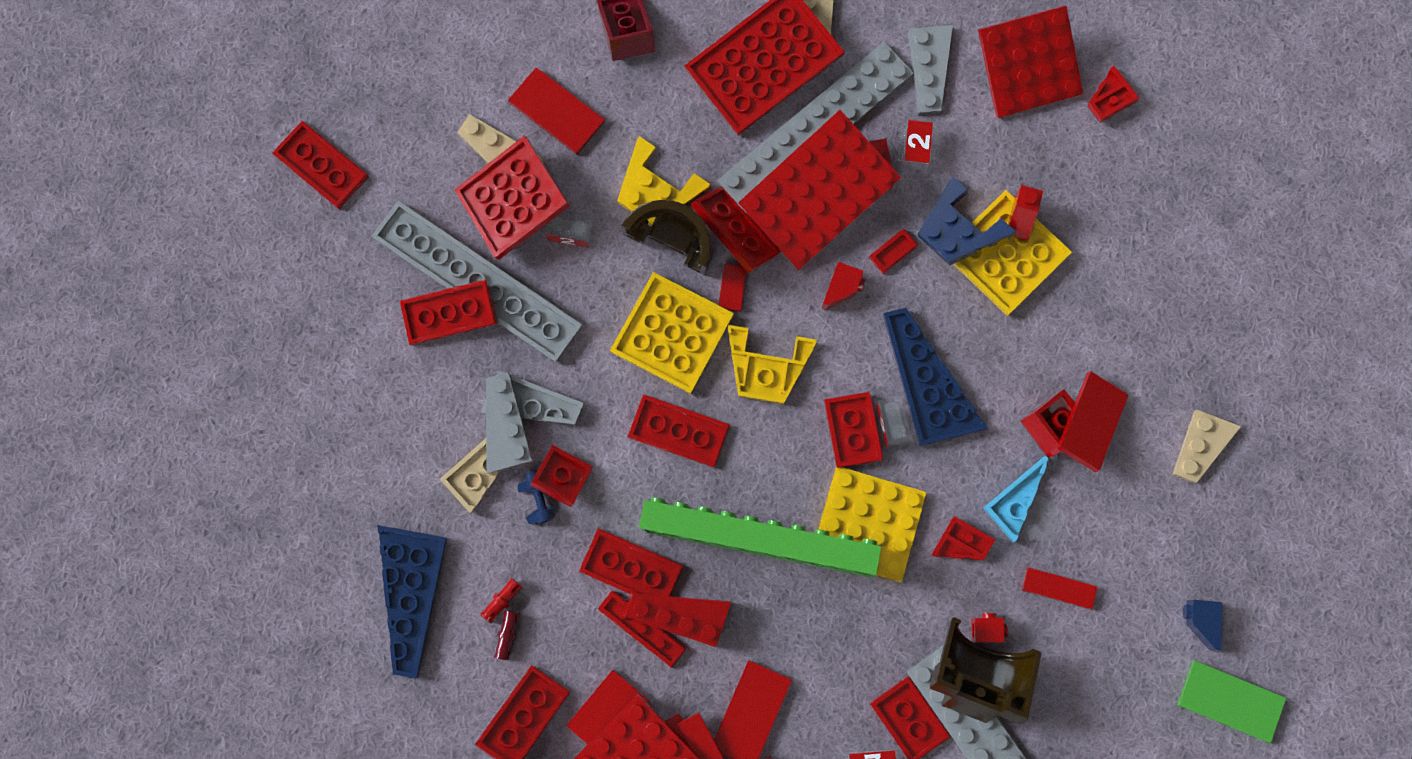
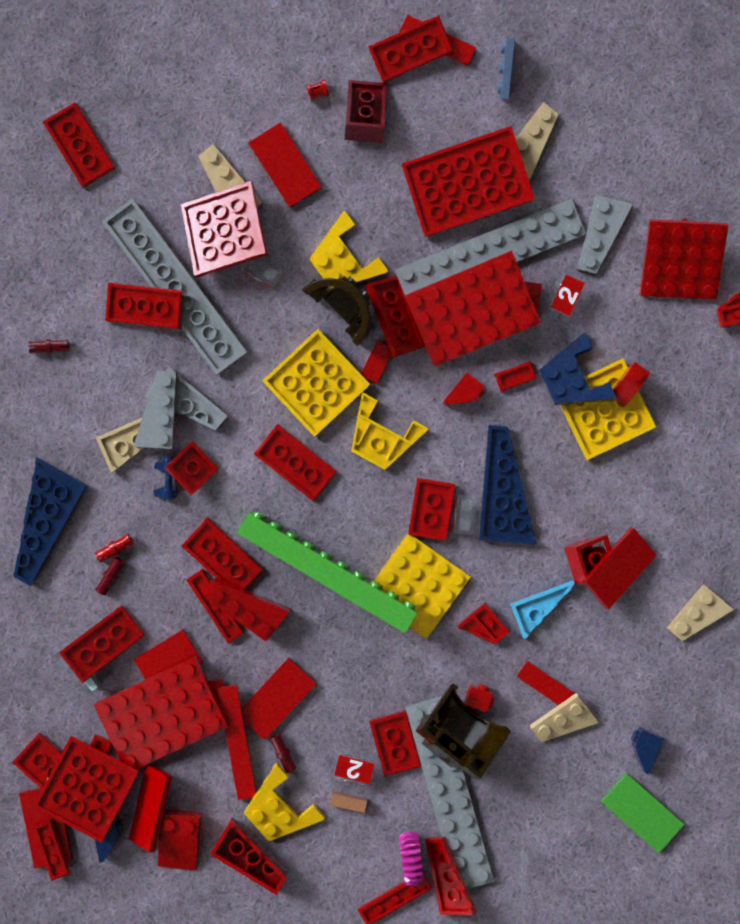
camera: 15 degrees right, 10 degrees up
(354, 394) = (48, 346): none -> dark red pin
(565, 20) = (317, 90): none -> red bush
(1096, 621) = (563, 719): none -> tan wing

